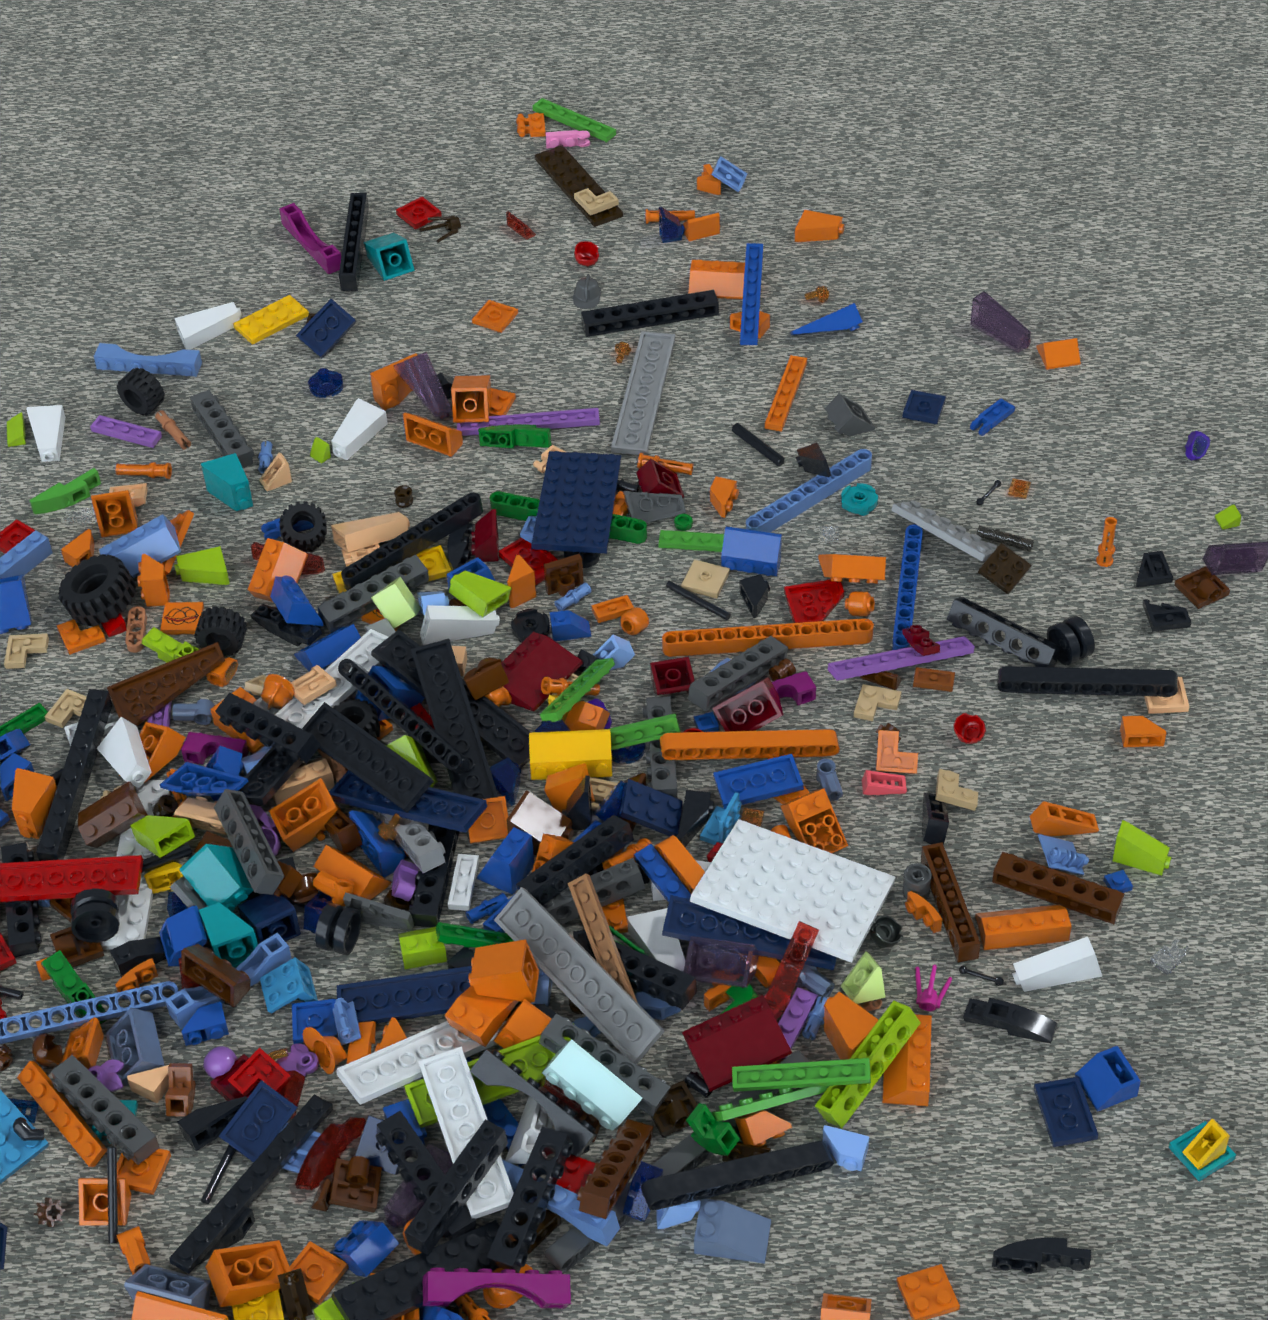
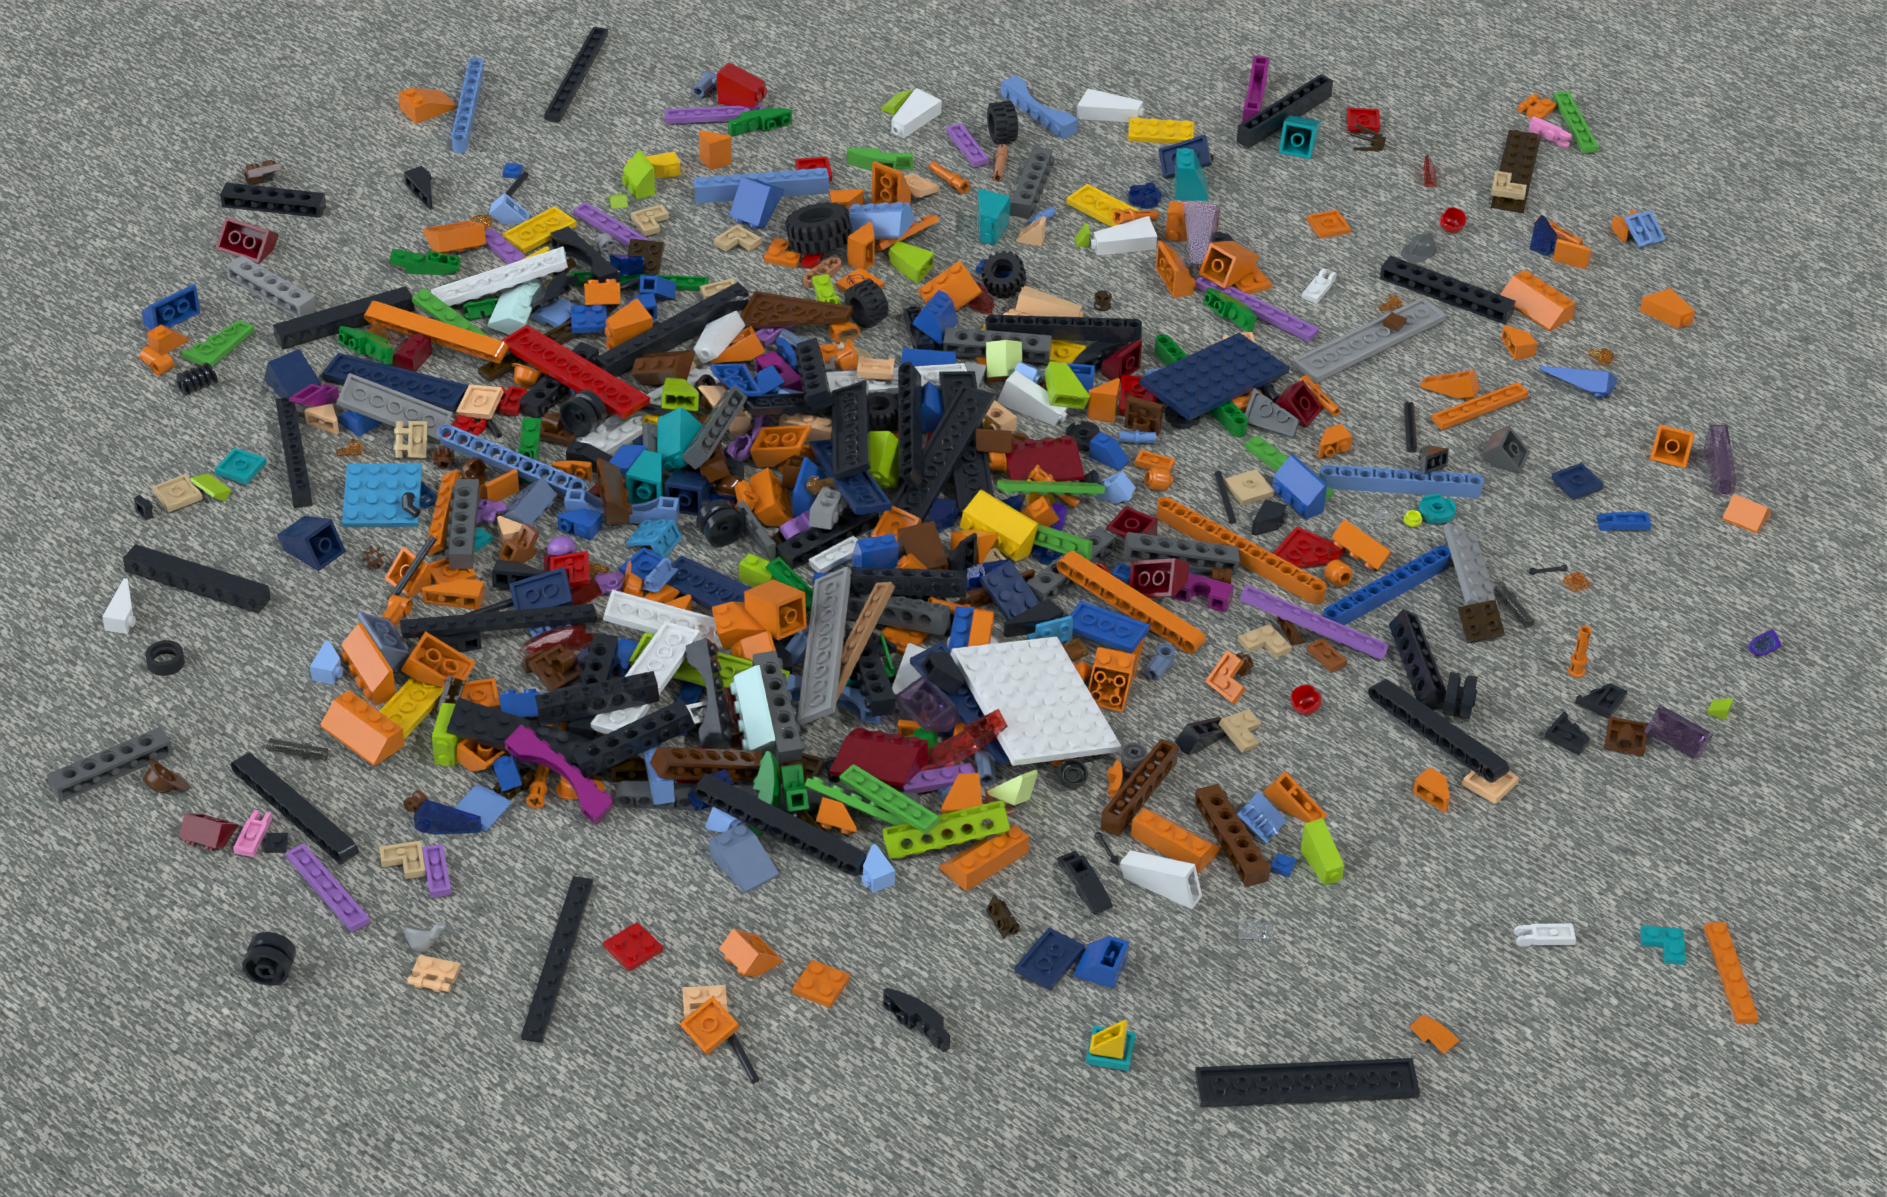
camera: 40 degrees right, 5 degrees down
(176, 1183) = (458, 593): none -> orange slope
(197, 724) = (787, 353): none -> blue hinge
(304, 414) = (1097, 204): none -> yellow plate
(343, 407) = (1128, 215): none -> orange pin
(348, 345) = (1189, 177): none -> teal slope
(552, 373) = (1319, 286): none -> white hinge
(649, 364) = (1394, 322): none -> reddish brown tile
(683, 522) = (1283, 442): green tile -> none
(684, 1144) = (767, 784): none -> green slope
(711, 922) = (943, 672): none -> black slope
(750, 387) = (1457, 384): none -> orange slope
(751, 294) = (1535, 318): blue plate -> none
(852, 519) = (1412, 518): none -> neon yellow plate
(872, 787) = (1191, 693): coral slope -> none
(920, 641) = (1343, 619): dark red slope -> none
(928, 999) = (1049, 831): dark pink plant -> none
(953, 334) = (1672, 446): none -> orange slope
(986, 1107) = (1001, 917): none -> dark brown hinge

